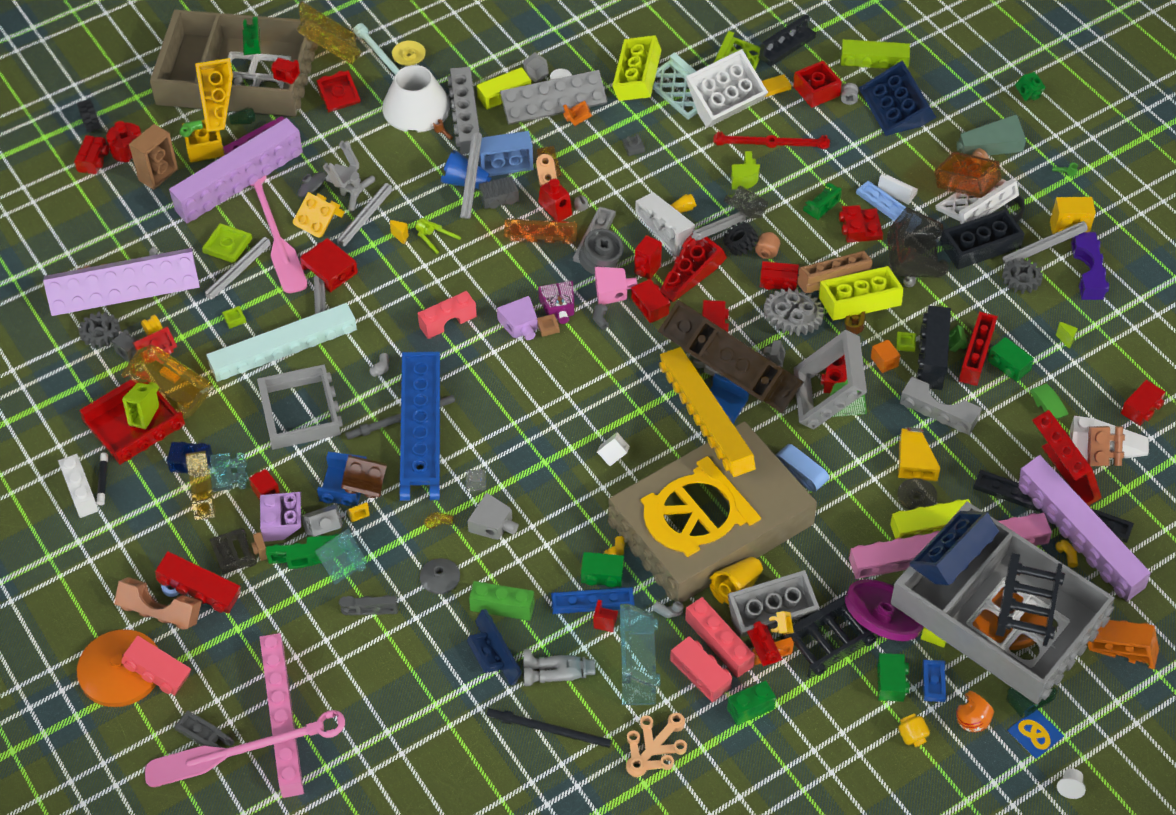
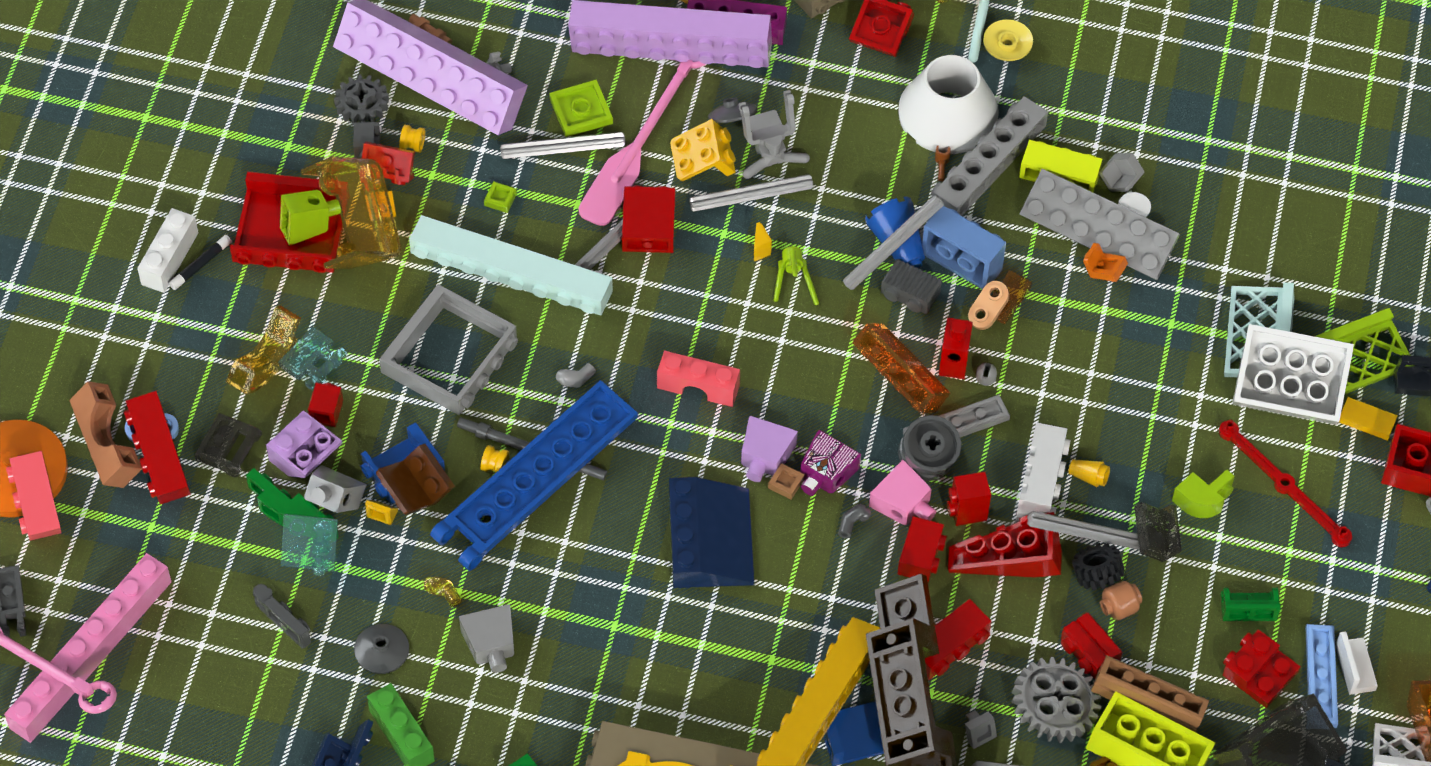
camera: 45 degrees right, 5 degrees up
(177, 455) = (295, 299): clear blue brick -> none
(259, 546) = (255, 459): medium nougat plate -> none
(389, 437) = (494, 459): none -> yellow wheel
(475, 480) = (525, 582): clear tile -> none
(539, 380) = (710, 533): none -> dark blue slope
(613, 449) = (690, 675): white panel -> none
(633, 145) = (1124, 356): dark grey tile -> none
(637, 68) = (1230, 266): neon yellow brick -> none

